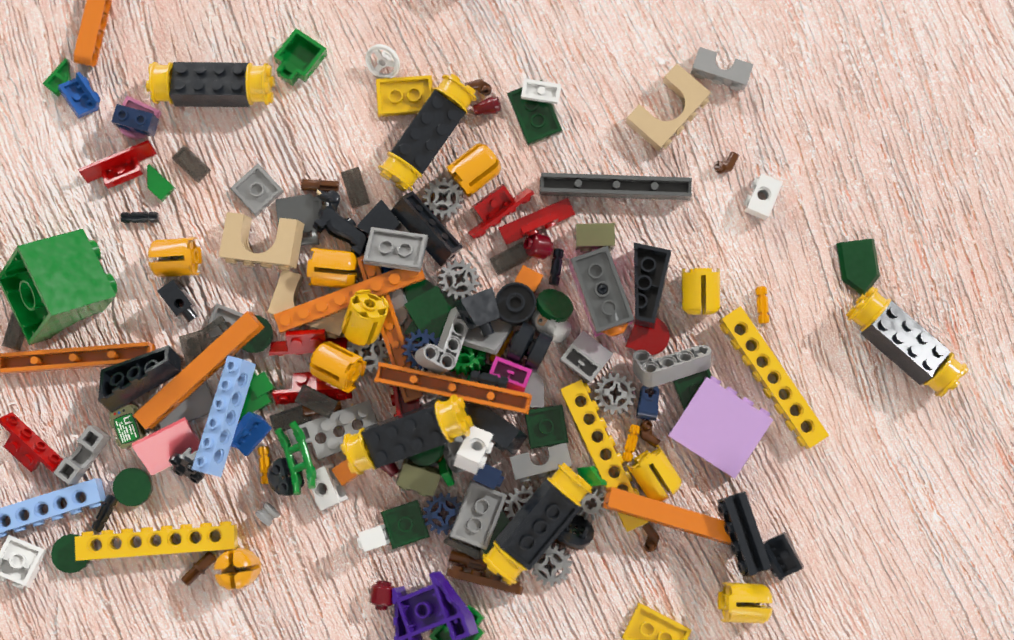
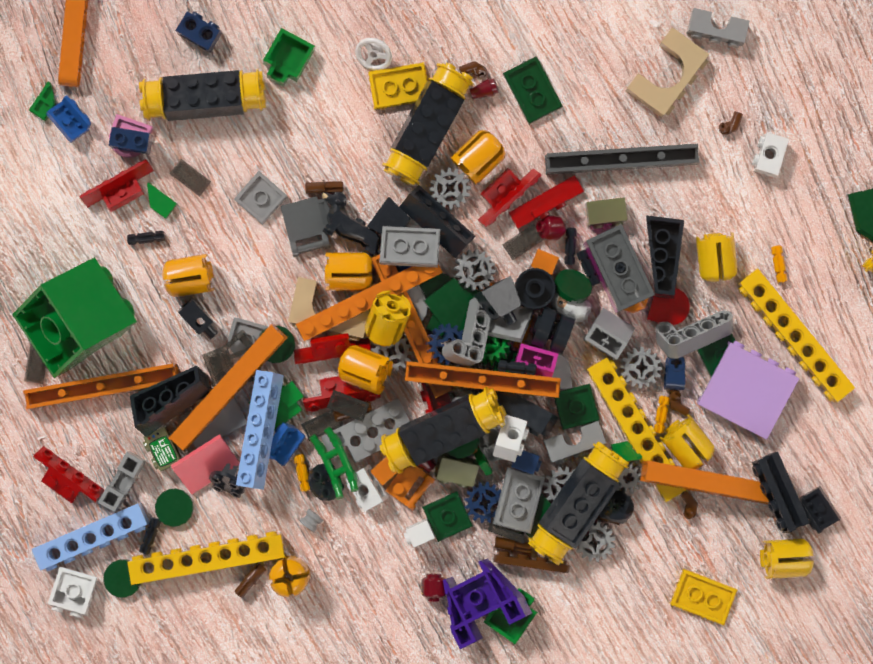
camera: 10 degrees left, 5 degrees up
(214, 27) = (196, 35): none -> dark blue brick
(283, 252) = (297, 261): tan arch -> none
(355, 187) = (359, 185): clear smoke tile -> none
(366, 484) = (403, 482): none -> orange plate
(541, 91) = (537, 69): white plate -> none
(572, 289) = (588, 267): none -> black axle

